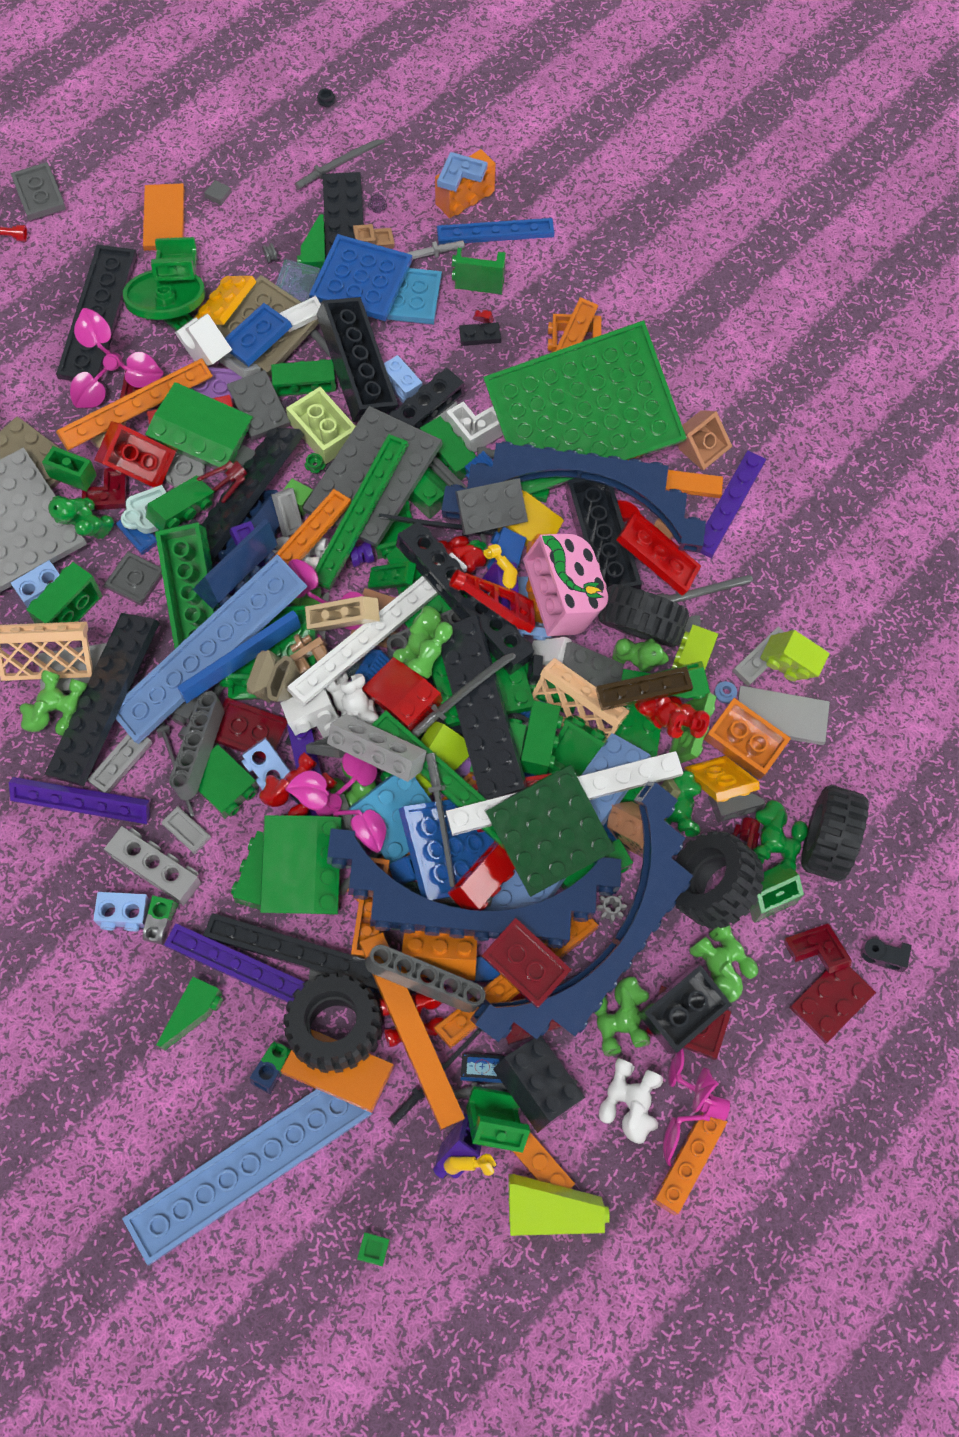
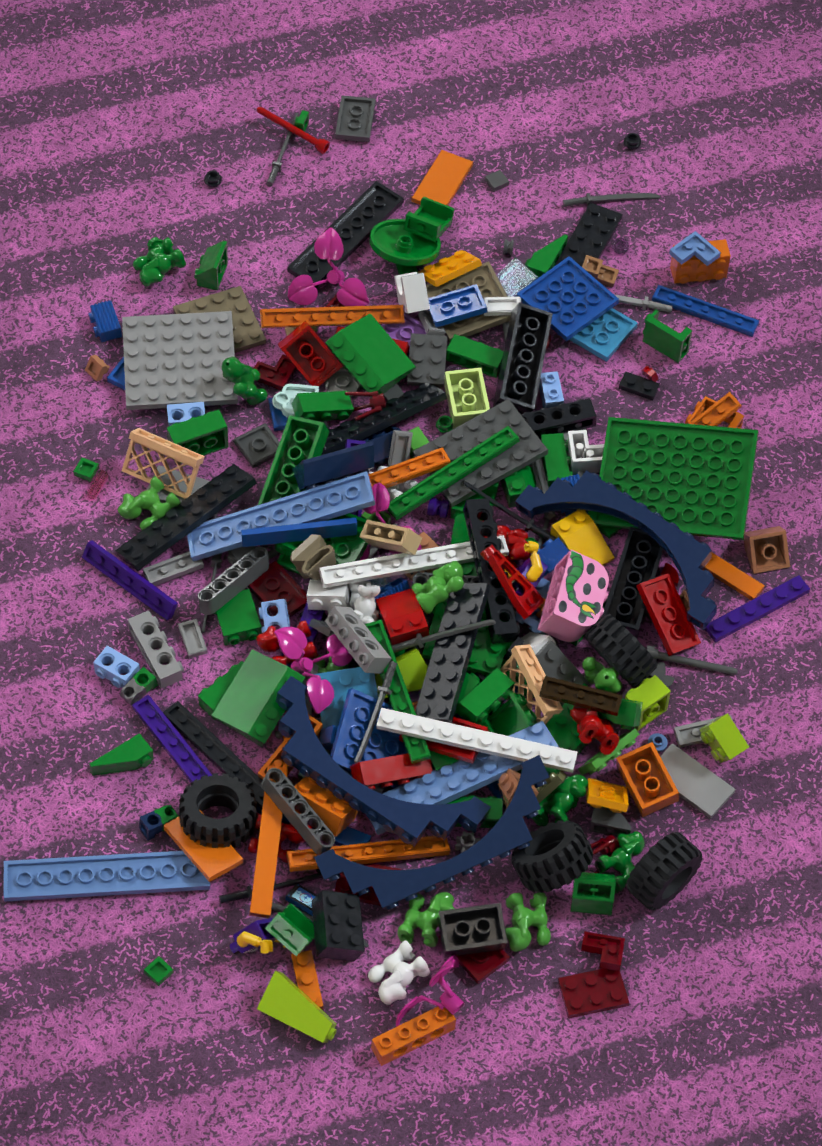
camera: 30 degrees right, 10 degrees down
(69, 468) = (255, 342): green brick -> none
(315, 648) = (350, 550): medium nougat hips -> none
(391, 575) = (448, 531): green tile -> none
(491, 506) = (555, 516): dark grey plate -> none
(526, 963) = (374, 834): dark red plate -> none
(549, 830) = (448, 758): dark green plate -> none
(886, 956) = (654, 982): black leg -> none

